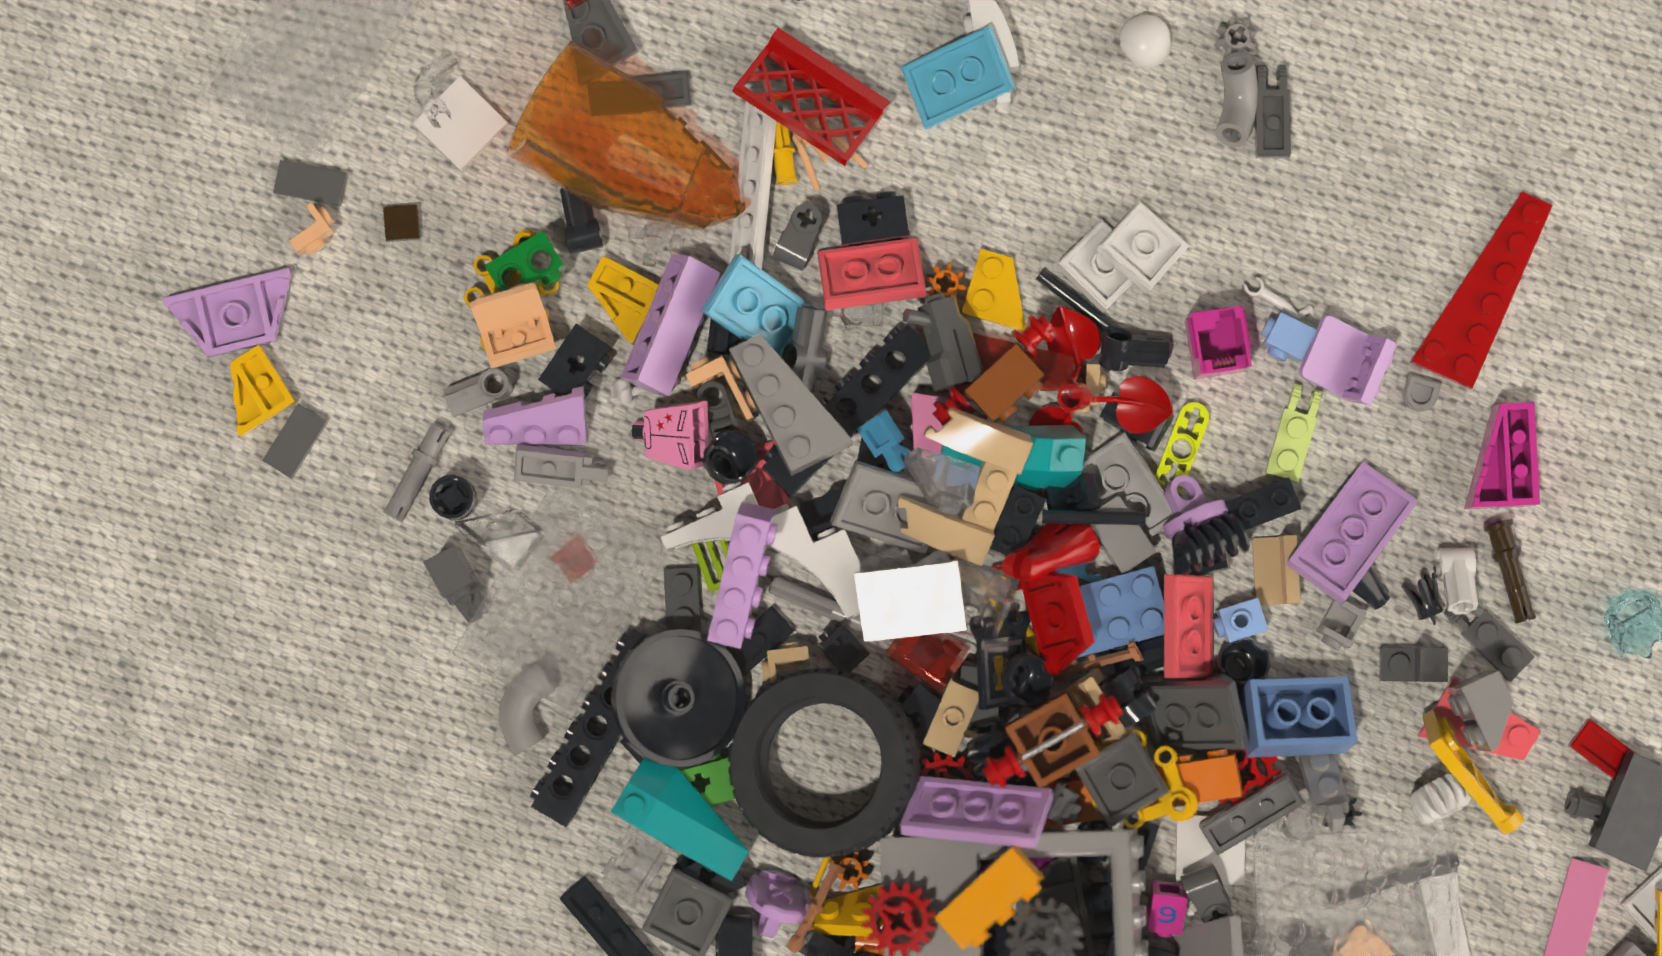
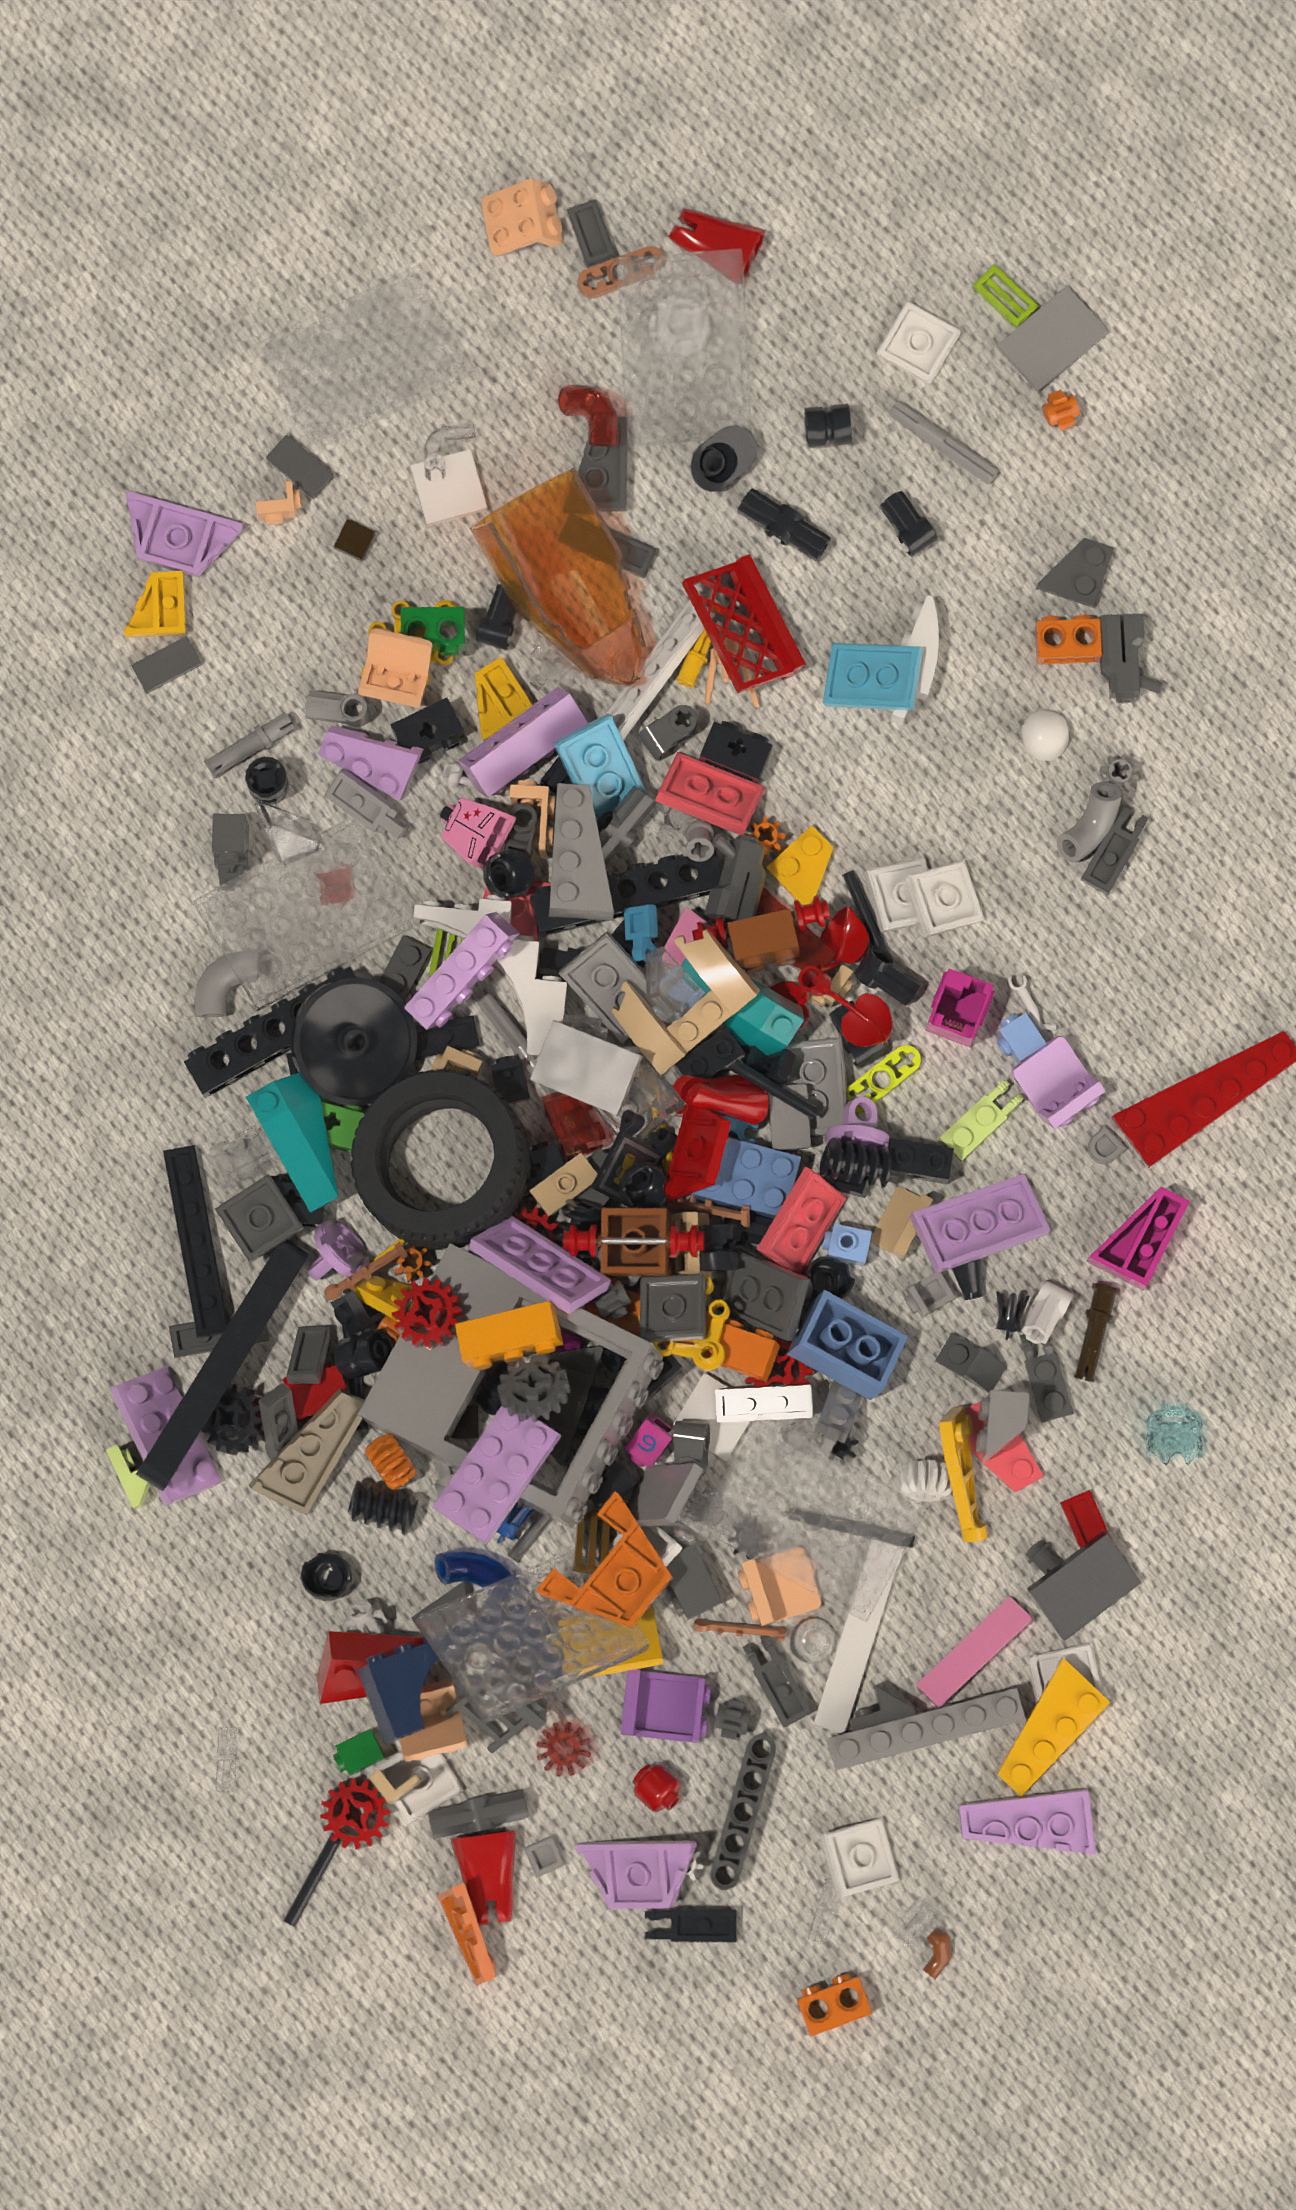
camera: 30 degrees right, 5 degrees down
(892, 329) = (699, 843): none -> light grey bush

